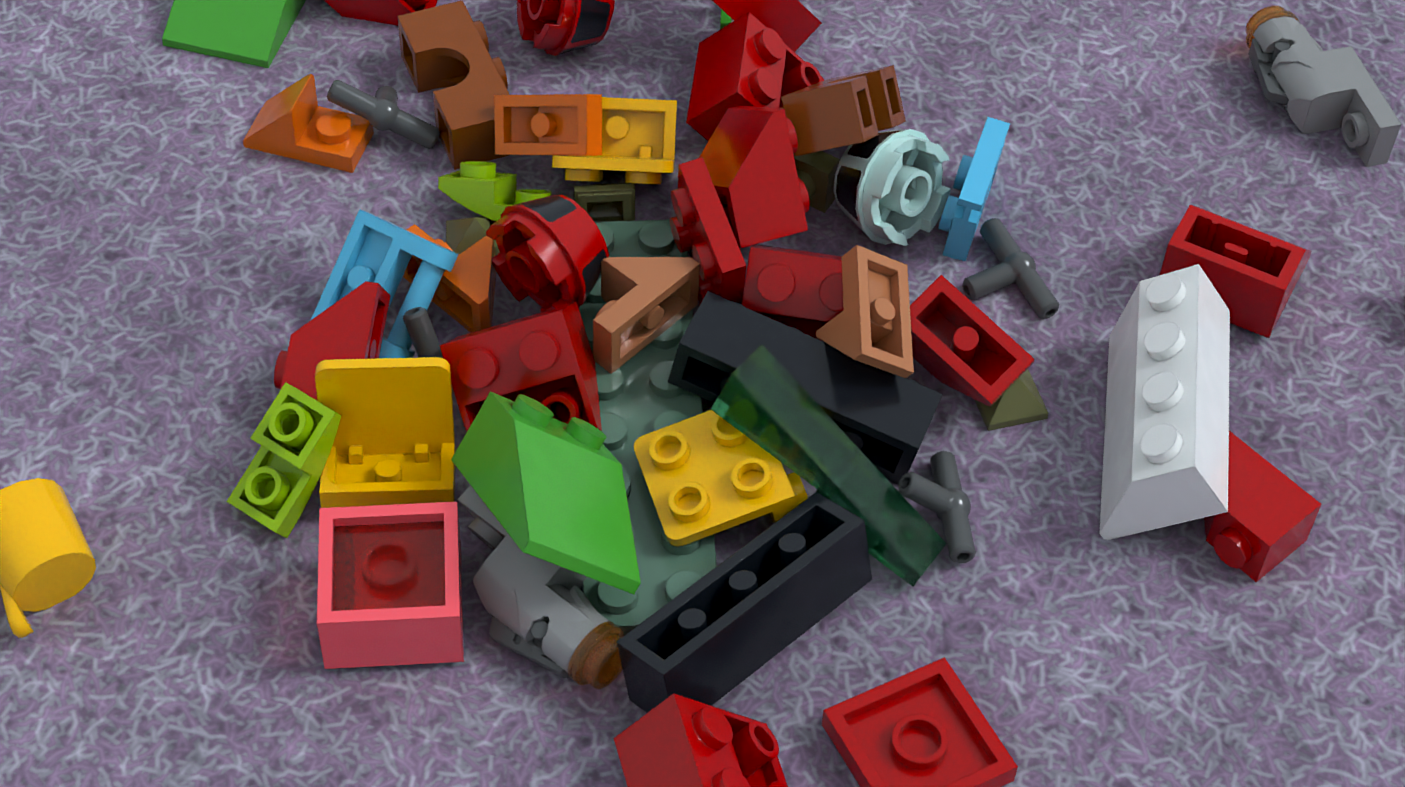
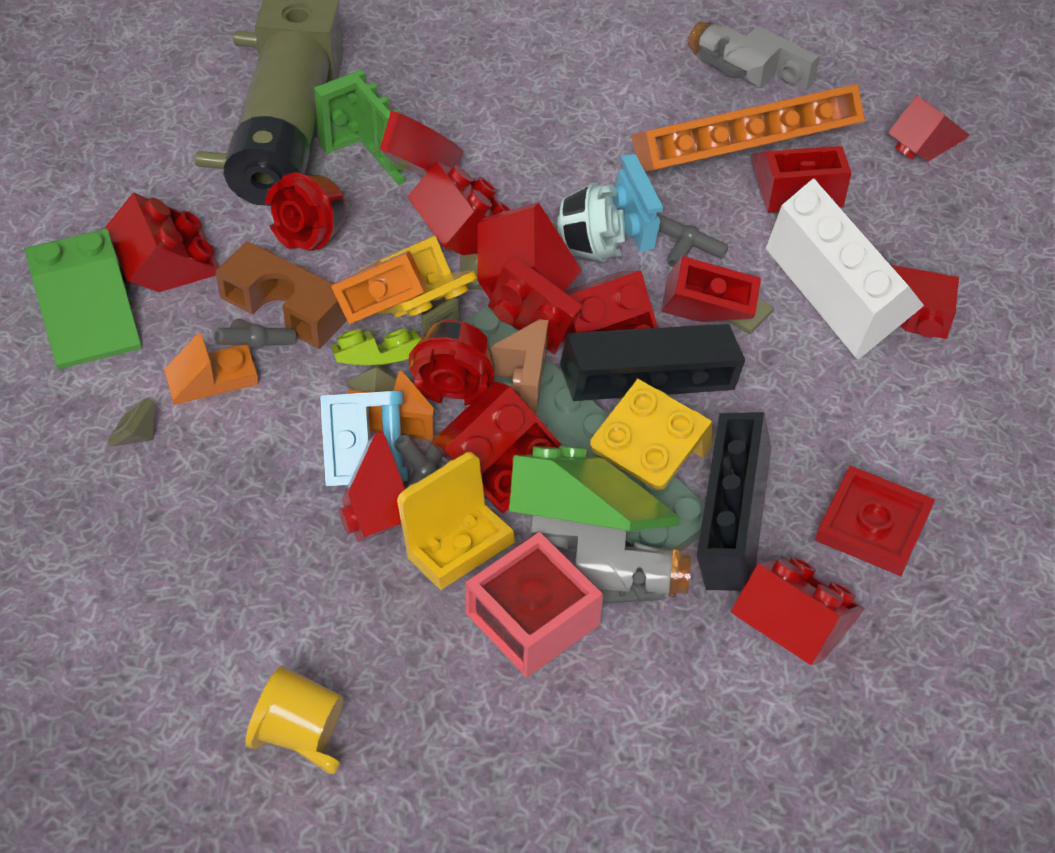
camera: 35 degrees left, 0 degrees up
(176, 145) = (135, 425): none -> olive slope
(292, 455) = (404, 570): lime slope -> none
(794, 429) = (671, 382): clear green slope -> none
(844, 109) = (542, 183): dark orange arch -> none
(875, 313) = (671, 300): nougat slope -> none
(946, 500) = (774, 385): dark grey piece -> none
(1219, 170) = (748, 127): none -> orange brick

